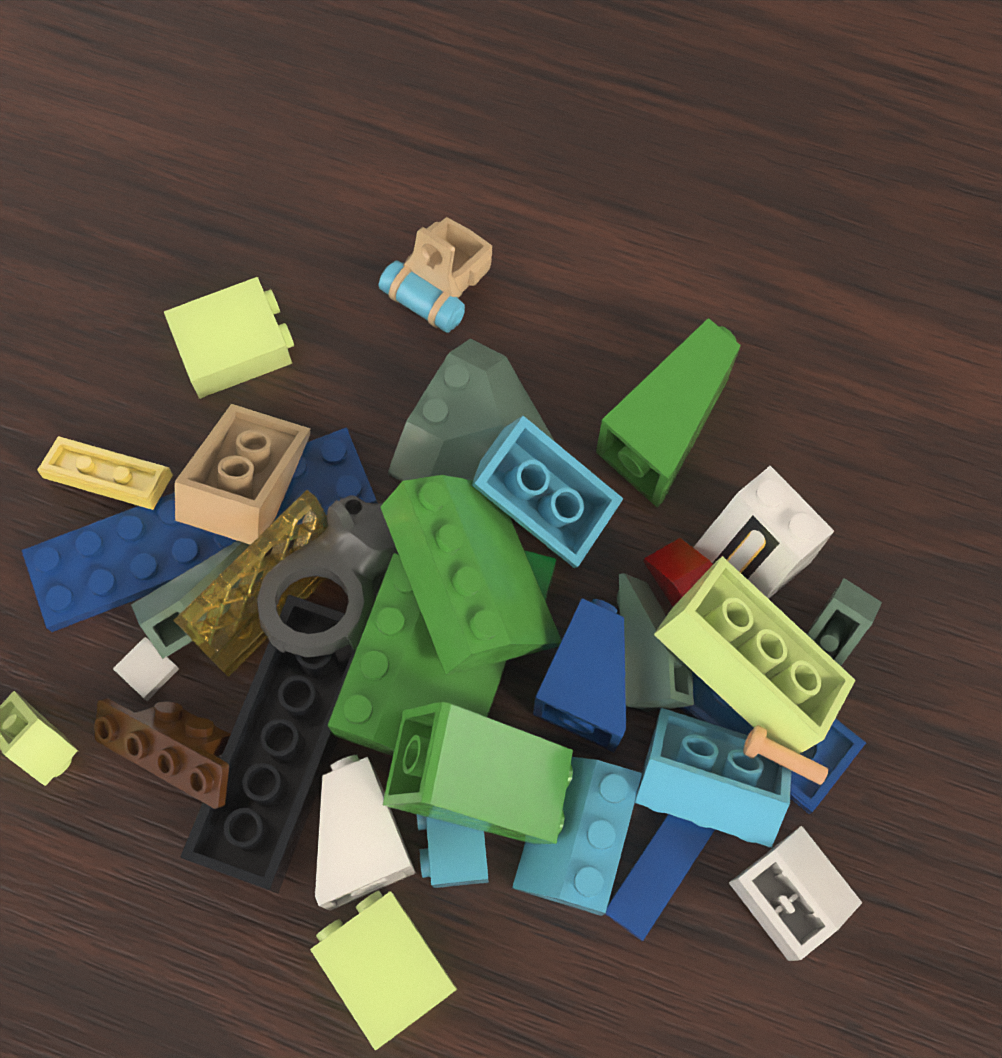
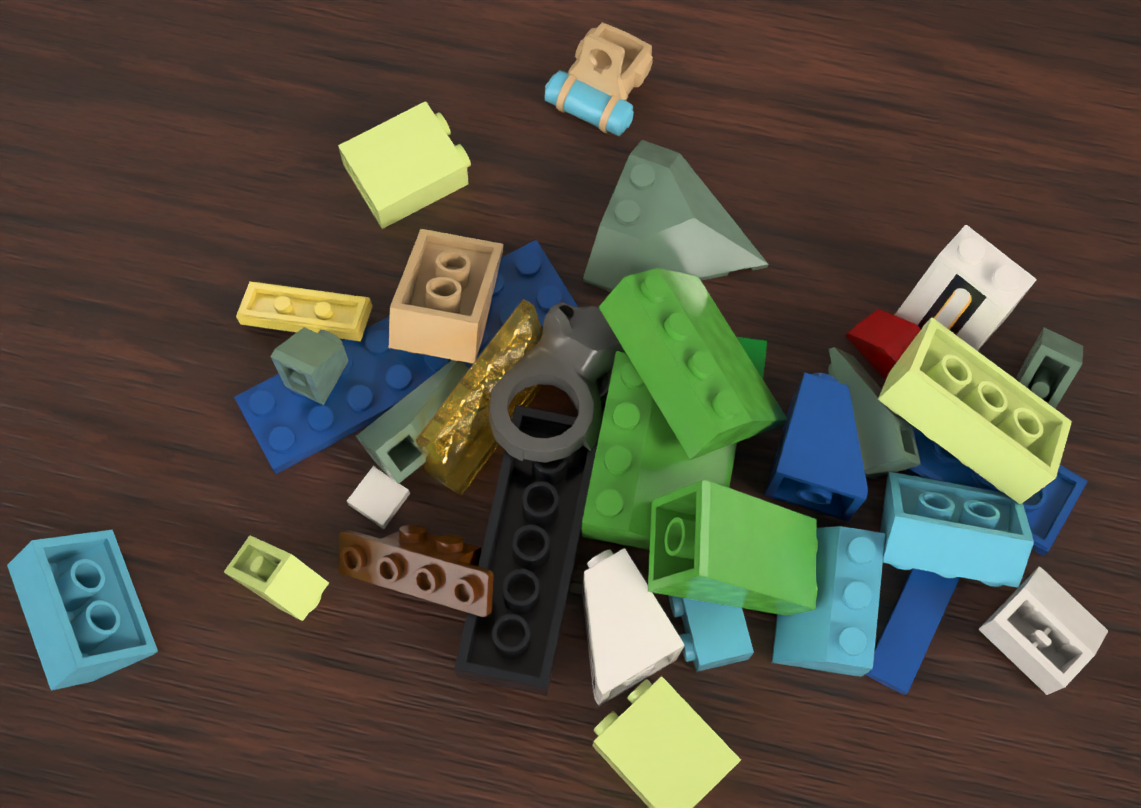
camera: 10 degrees left, 0 degrees up
(94, 526) = (311, 363): none -> sand green slope
(546, 490) = (749, 273): medium azure slope -> none
(662, 417) = (846, 197): bright green slope -> none
(759, 744) = (991, 491): light nougat piece -> none

